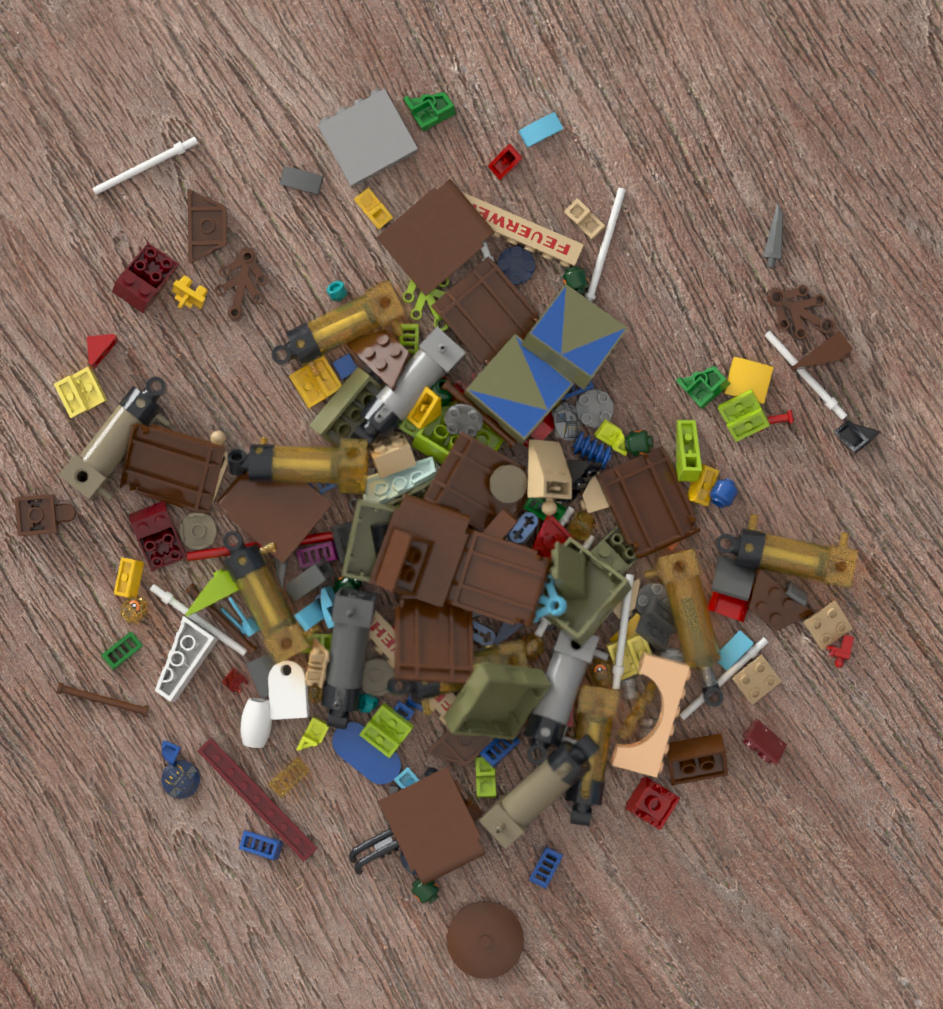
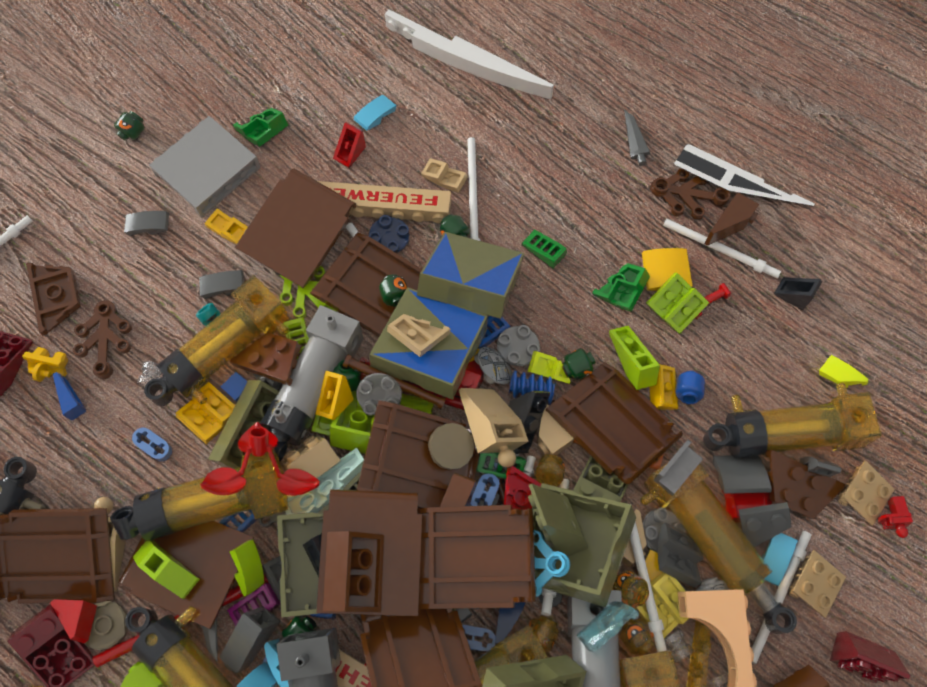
camera: 15 degrees left, 20 degrees down
(181, 519) = (75, 617): none -> red slope
(204, 336) = (68, 399): none -> blue slope
(258, 506) = (165, 569): none -> lime slope
(260, 397) = (154, 440): none -> medium blue beam
(276, 333) = (149, 372): none -> clear wheel
(306, 70) = (129, 126): none -> dark green head
(323, 526) = (249, 567): none -> lime slope
(355, 265) = (220, 282): none -> dark grey slope
(359, 433) = (258, 442): none -> red plant
(503, 327) = (392, 289): none -> dark green head
(509, 385) = (417, 333): none -> tan wing
(576, 659) = (606, 625): none -> clear light blue slope
(609, 638) = (632, 587): none -> clear yellow head
(646, 95) = (468, 57): none -> white slope
(661, 334) = (550, 260): none -> green slope
(678, 562) = (678, 468): none -> flat silver panel
(731, 622) = (764, 522): none -> dark grey wing
(843, 306) = (730, 176): none -> white sticker
(855, 522) = (841, 372): none -> neon yellow slope

